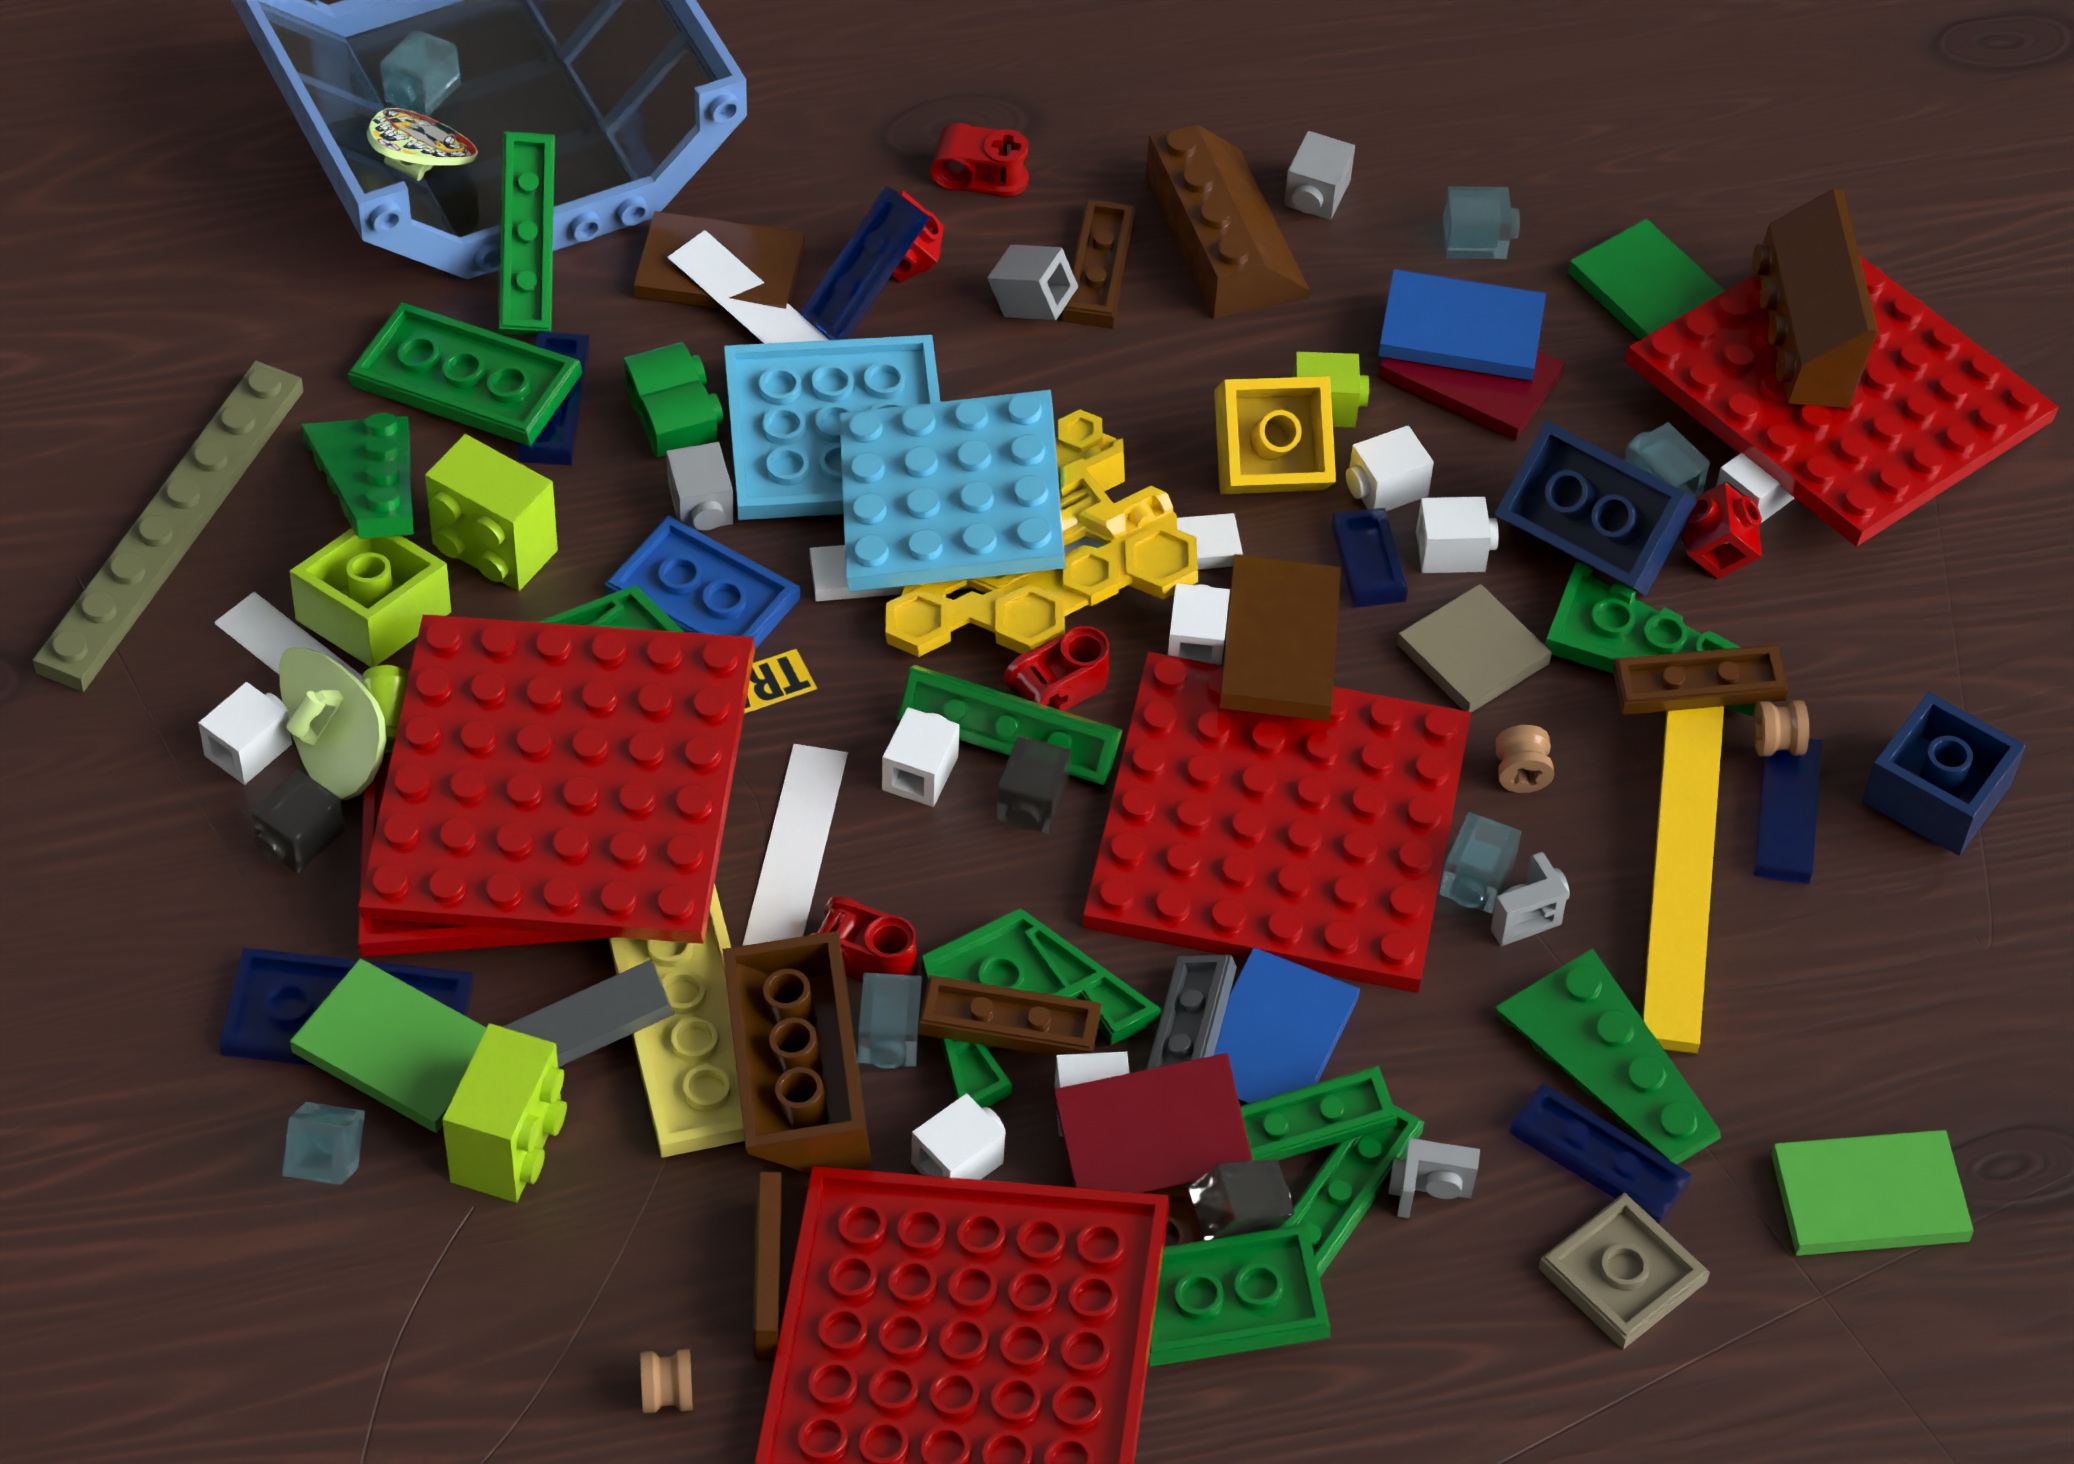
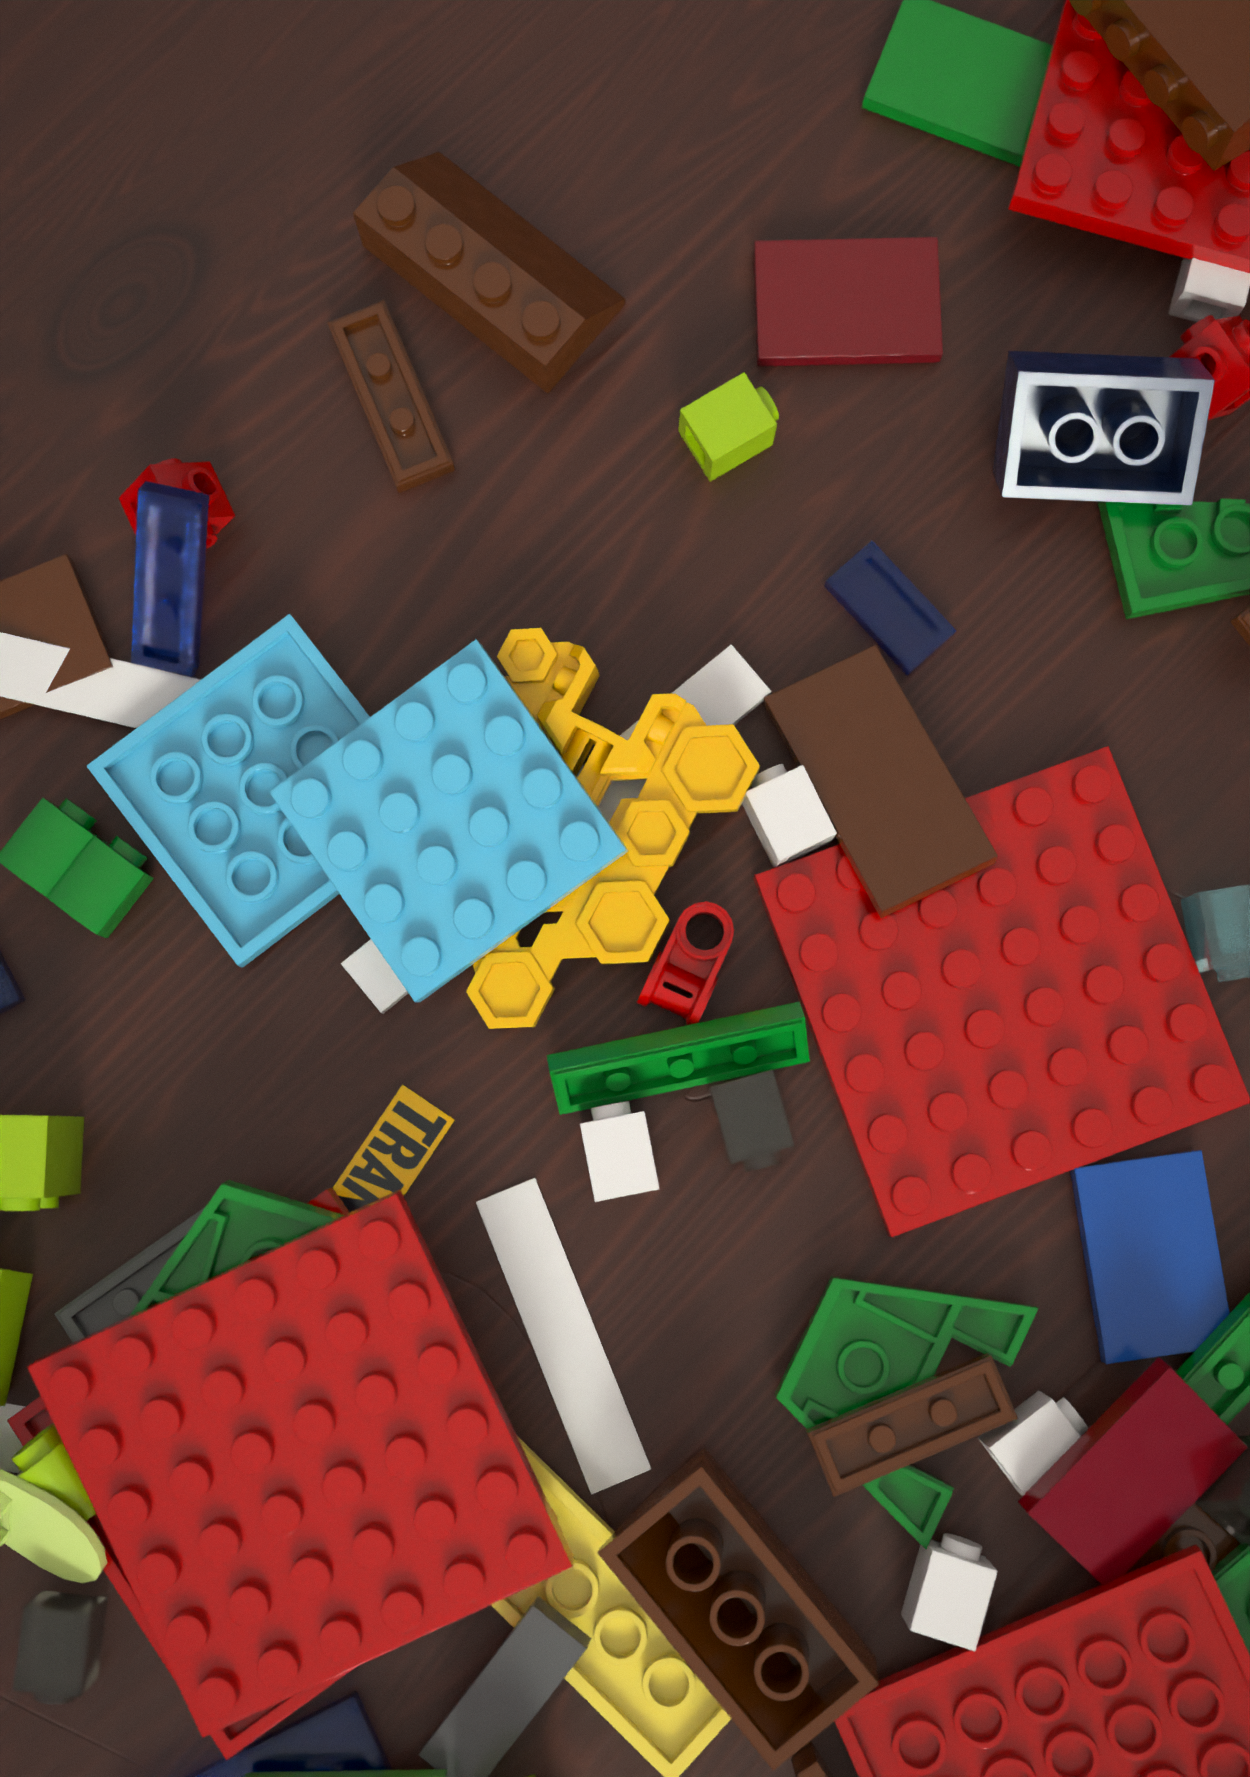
camera: 30 degrees left, 30 degrees up
(700, 486) = (182, 964): light grey brick -> none
(705, 584) = (265, 1079): blue tile -> none
(868, 938) = (702, 1416): red piece -> none
(889, 1020) = (792, 1492): clear light blue brick -> none
(977, 158) = (180, 342): red piece -> none
(1033, 282) = (349, 479): light grey brick -> none
(1193, 1009) = (1074, 1306): dark grey tile -> none
(1275, 435) = (728, 537): yellow brick -> none
(1319, 175) = (548, 143): light grey brick -> none
(1390, 470) = (852, 493): white brick -> none
(1455, 534) = (965, 534): white brick -> none
(1462, 324) = (814, 256): blue tile -> none
(1474, 648) = (1059, 659): dark tan tile -> none
(1479, 222) = (746, 104): clear light blue brick -> none
(1524, 758) = (1194, 774): medium nougat wheel -> none
(1670, 458) = (1116, 314): clear light blue brick -> none

